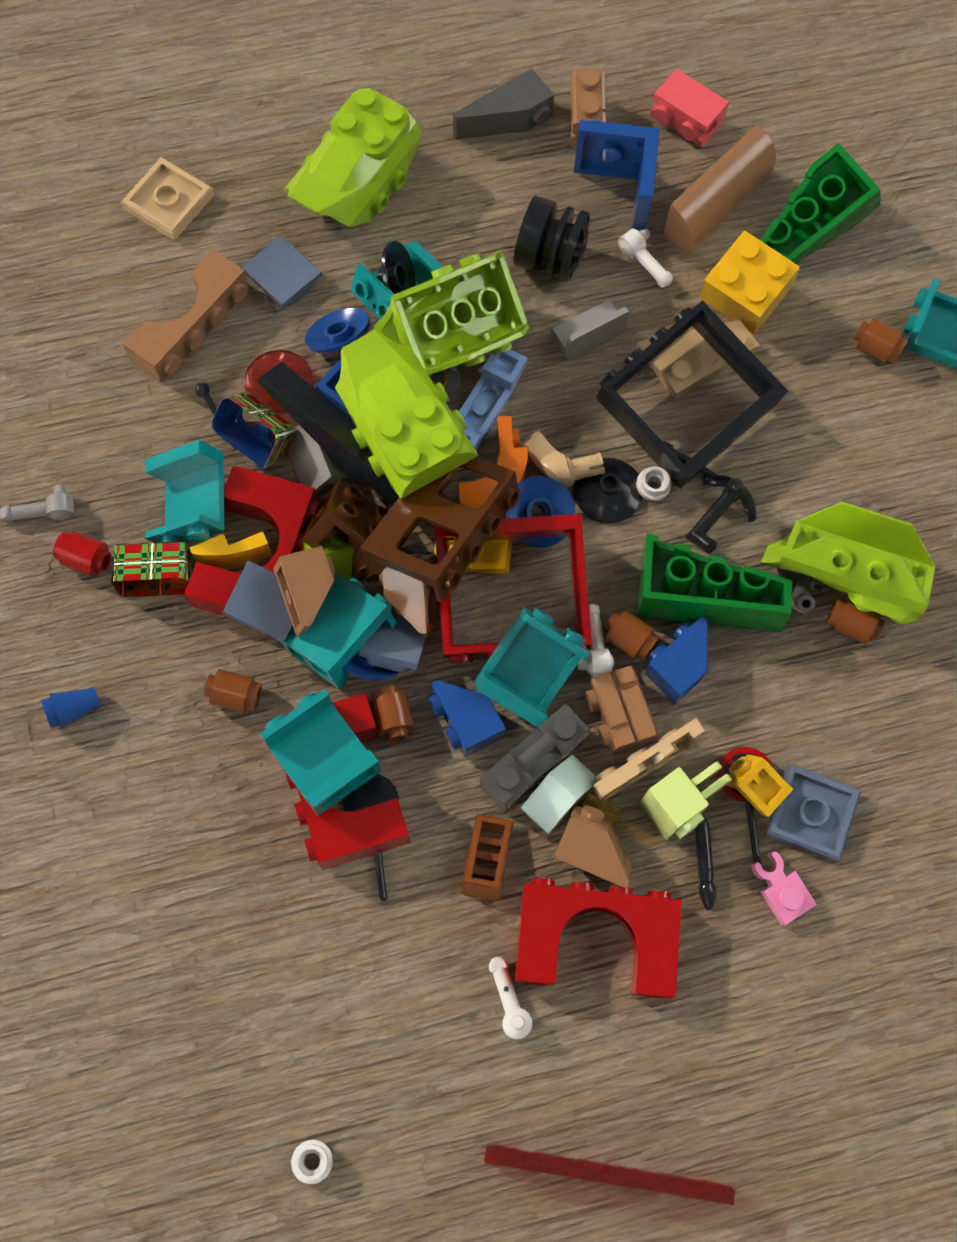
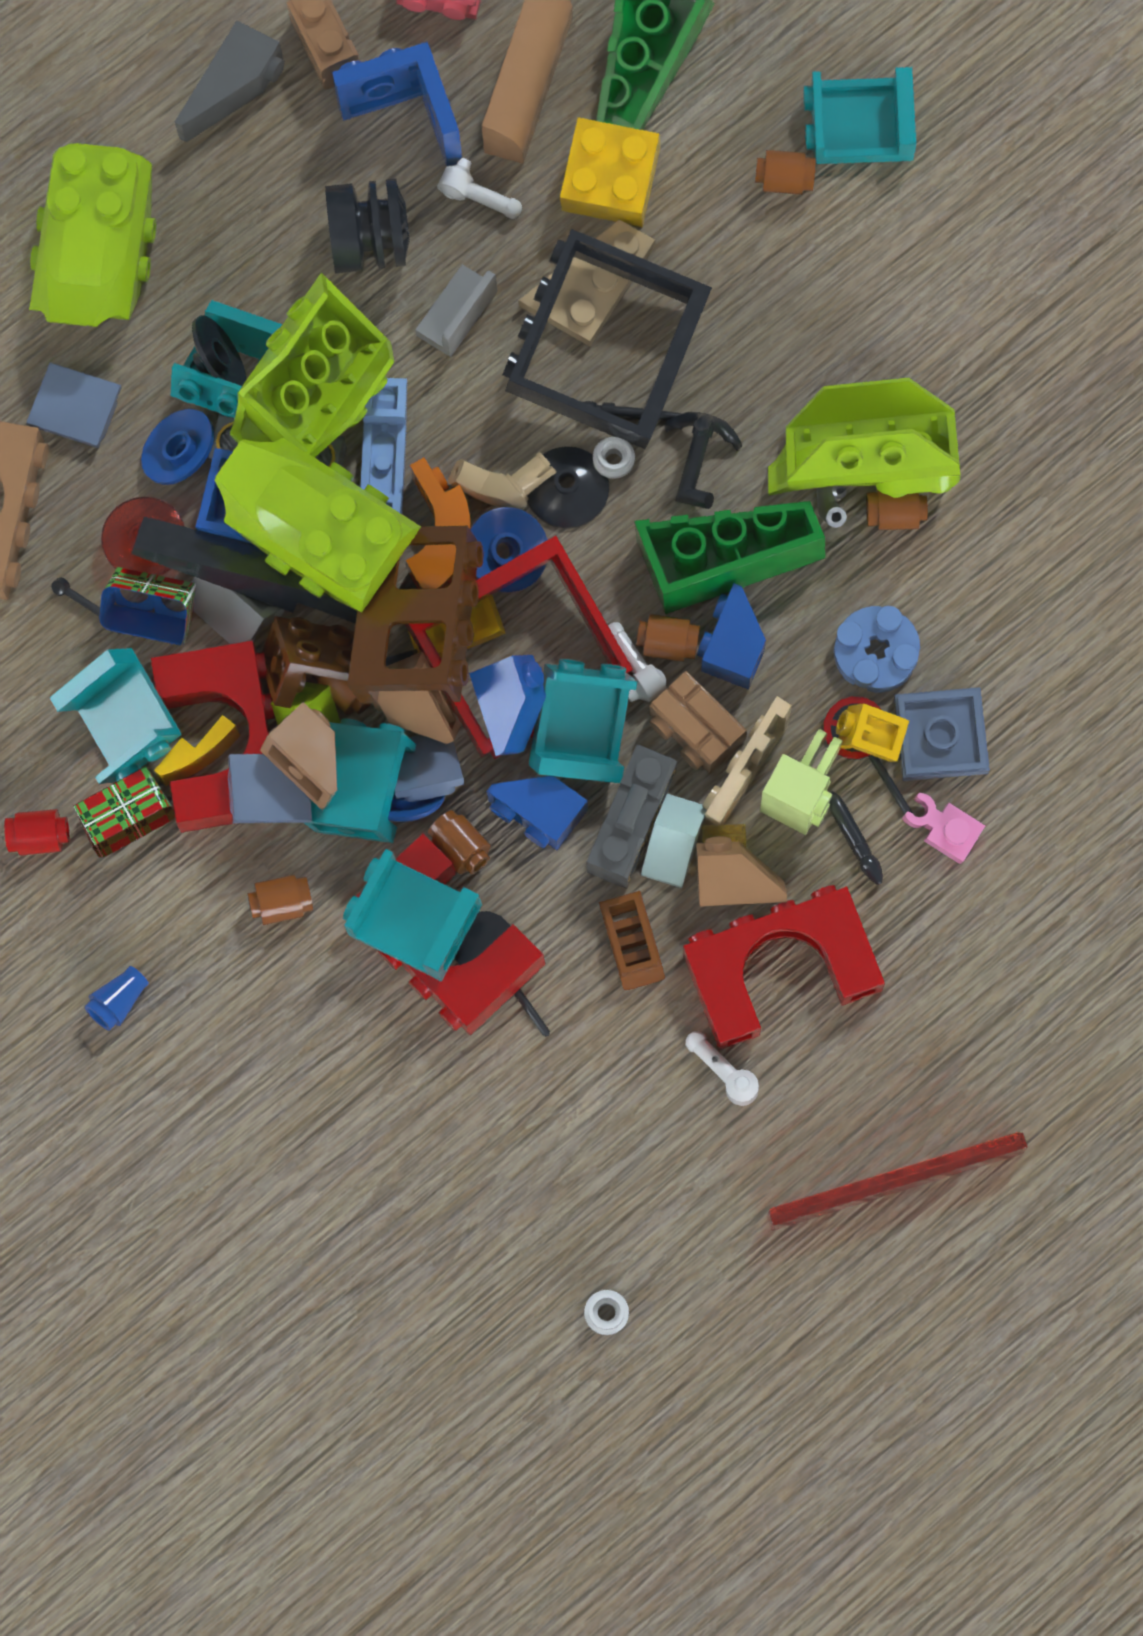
camera: 20 degrees left, 5 degrees up
(482, 621) = (510, 701): none -> blue slope
(776, 735) = (866, 670): none -> medium blue plate

